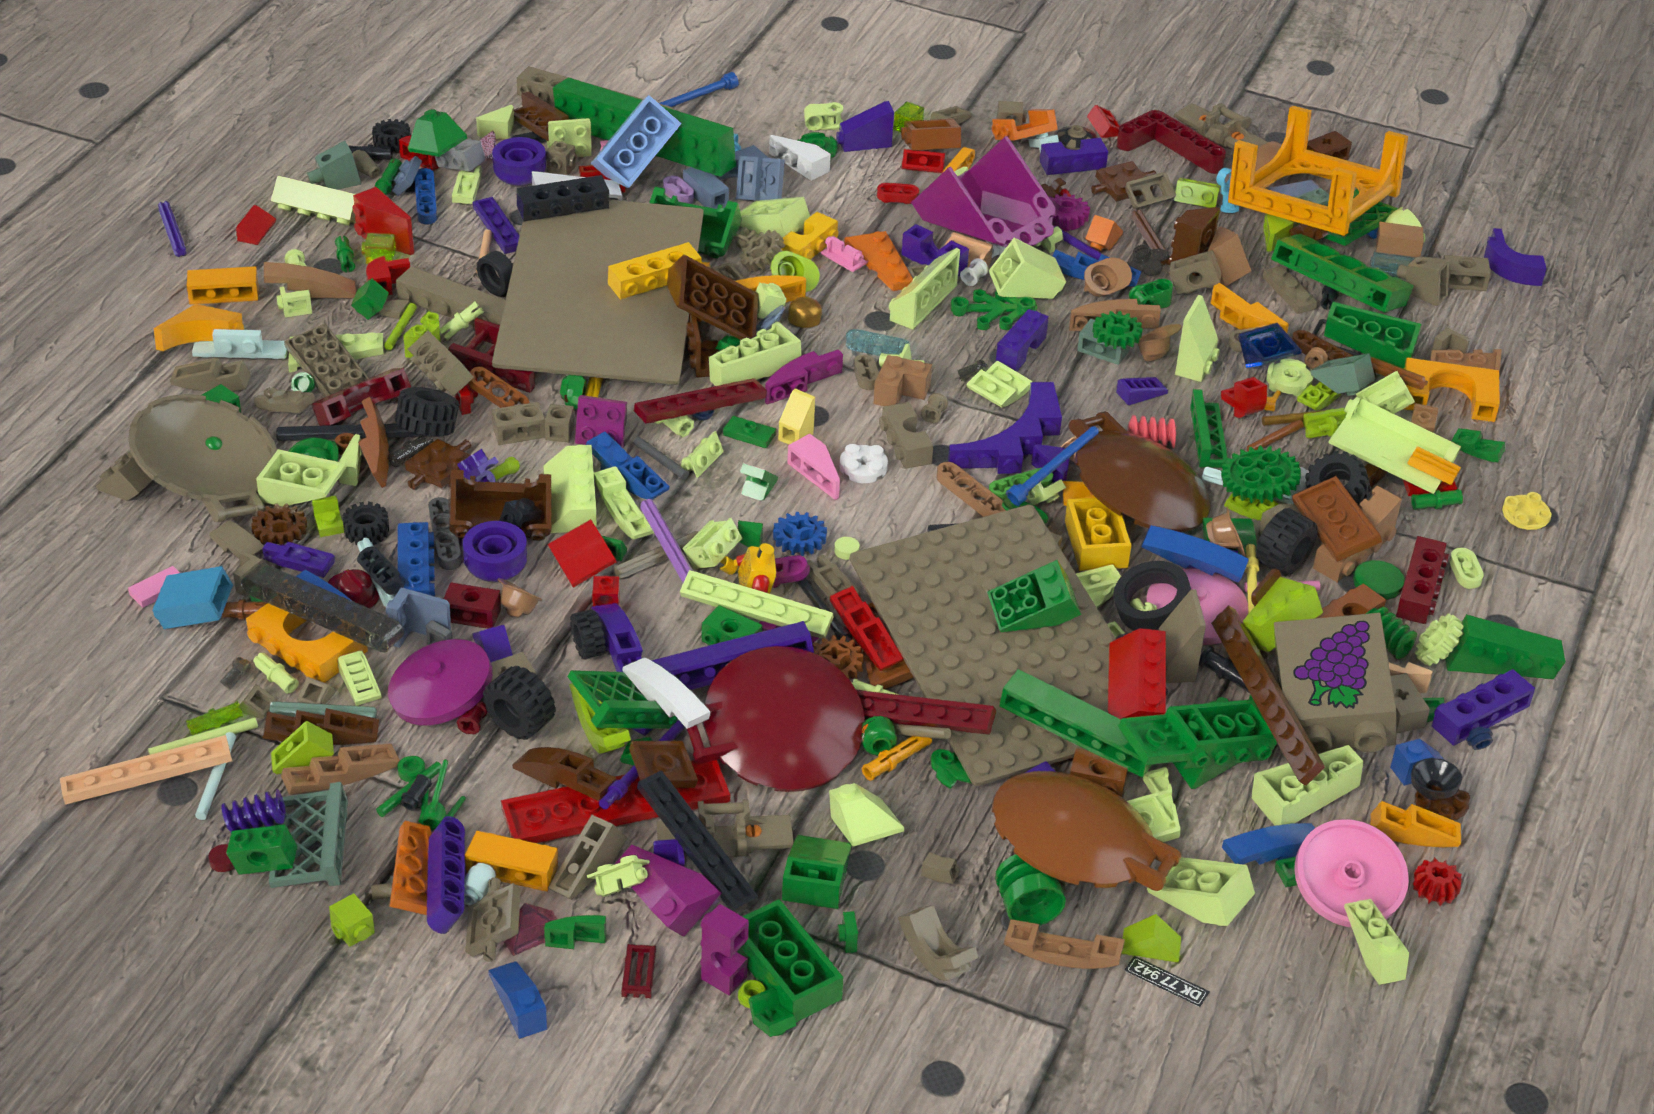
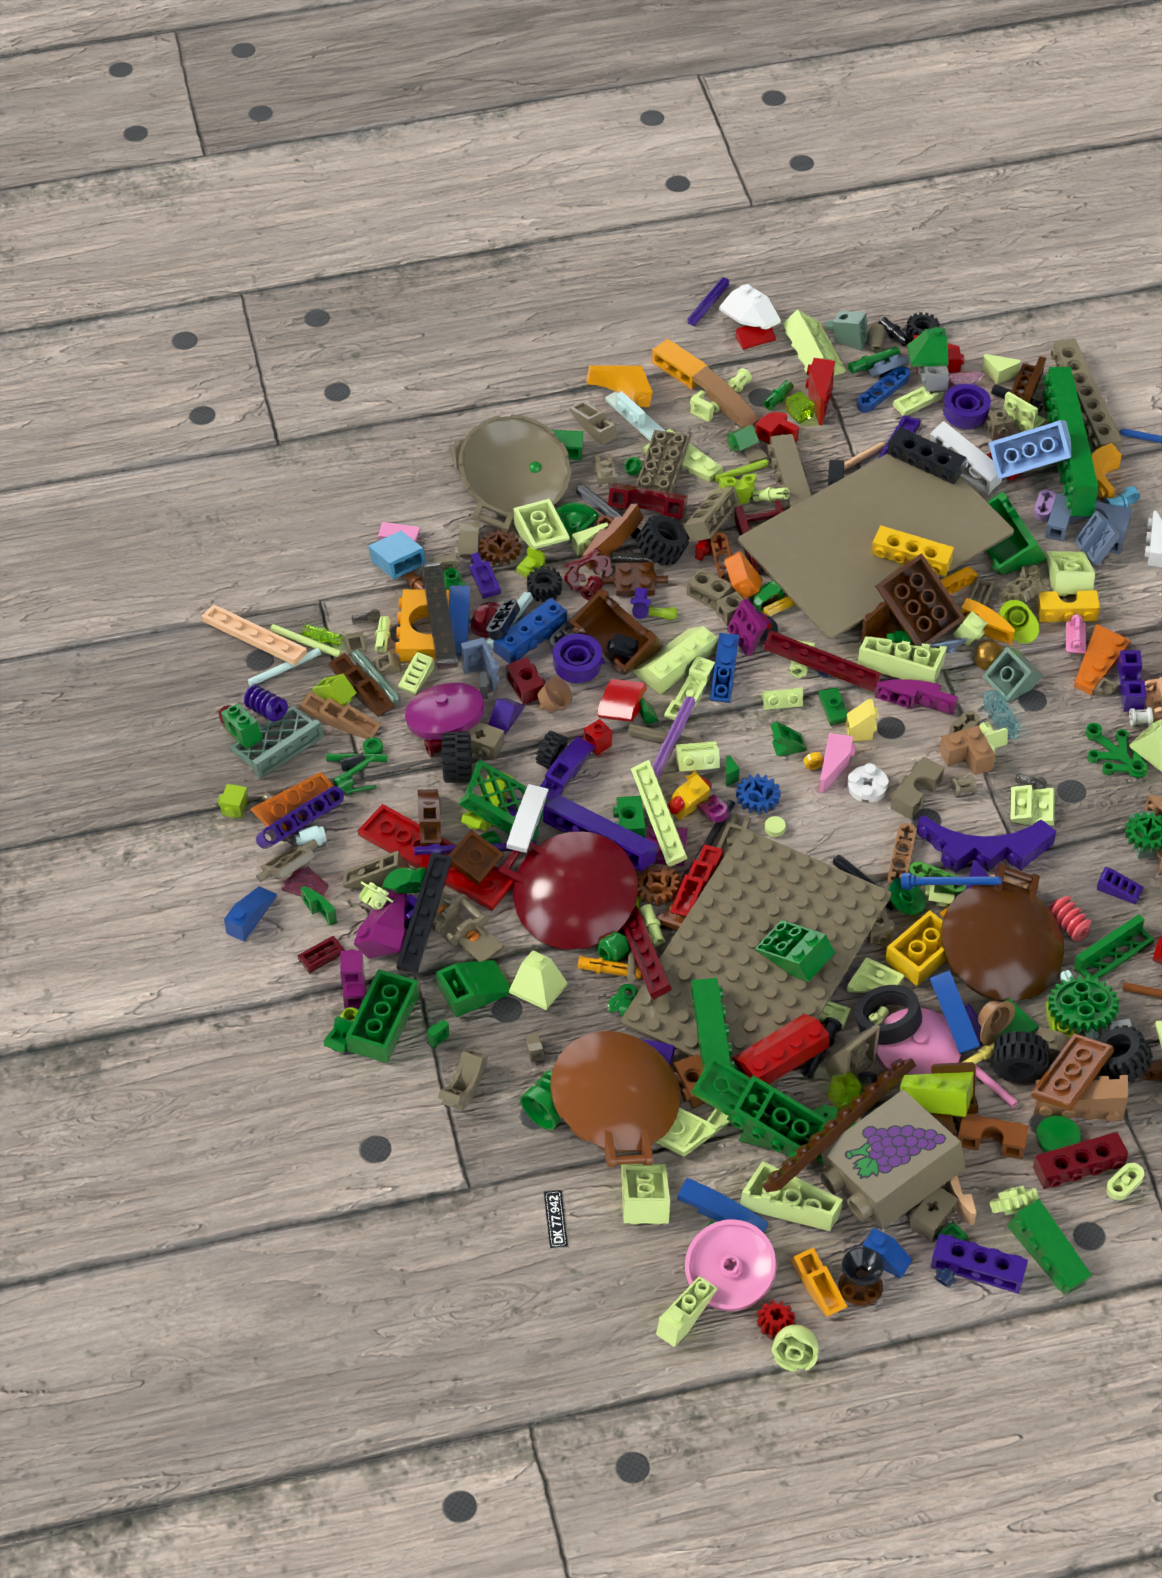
camera: 55 degrees right, 10 degrees up
(226, 202) = (750, 308): none -> white wedge
(398, 474) = (601, 562): none -> dark red helmet
(414, 495) = (591, 587): none -> dark red bush
(514, 859) = (343, 839): light orange brick -> none
(537, 387) = (743, 575): none -> orange slope
(640, 829) = (404, 880): none -> green hat
(661, 458) = (759, 679): dark grey bar -> none
(802, 477) = (813, 760): none -> yellow tile
(844, 309) = (1012, 674): none -> sand green slope
(926, 290) = (1083, 704): yellowish green slope -> none
(1026, 333) = (1075, 787): dark purple arch -> none
(1063, 950) = (526, 1146): medium nougat slope -> none
(1152, 940) = (578, 1192): lime slope -> none
(1213, 676) = (843, 1089): none -> clear neon green brick
(1397, 636) = (1000, 1168): green piece -> none
(1486, 883) = (795, 1348): none -> yellowish green cylinder

